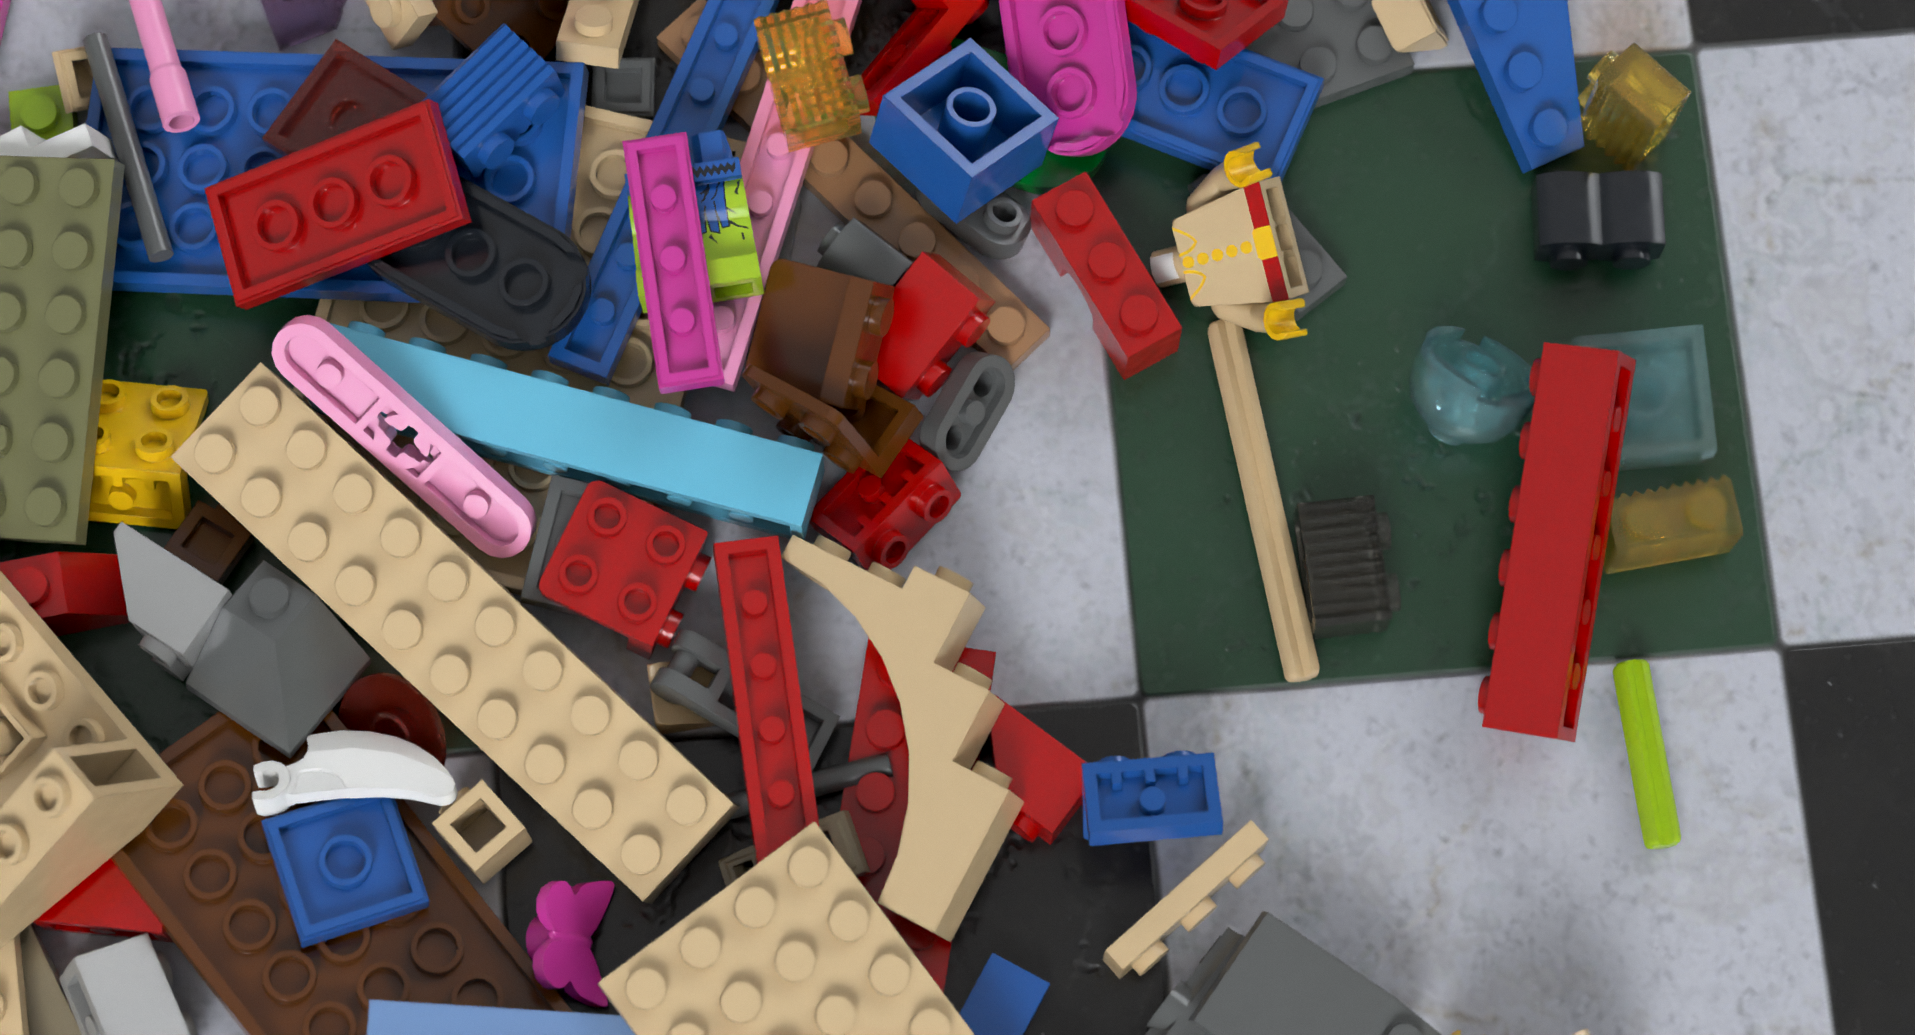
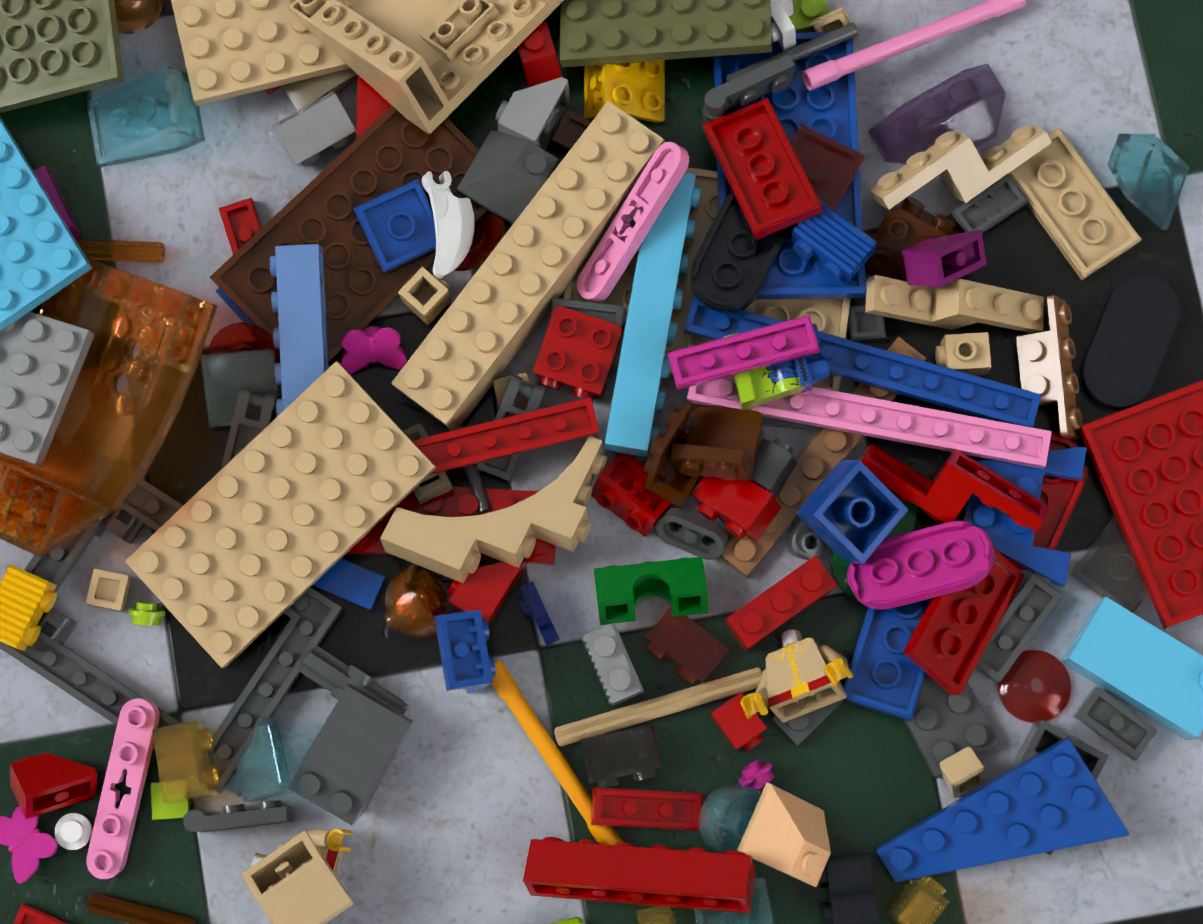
camera: 90 degrees right, 5 degrees up
(182, 220) = (748, 87): none -> dark grey plate
(809, 75) = (871, 419): clear yellow brick -> none
(1052, 437) = (624, 586): none -> green arch
(1052, 896) = (414, 602): none -> clear orange cylinder
(1070, 690) = (532, 605): none -> clear blue plate
(1159, 443) = (687, 646): none -> clear red bracket
(1187, 564) = (612, 664): none -> light grey brick
(1188, 902) = (419, 681): tan plate -> none
(1303, 367) = (735, 725): none -> red brick
(1392, 346) = (756, 774): none -> dark pink plate
(1439, 533) = (646, 809): none -> red tile
(1452, 622) = (509, 691): none -> light orange piece
(1504, 299) = (788, 835): none -> light nougat slope

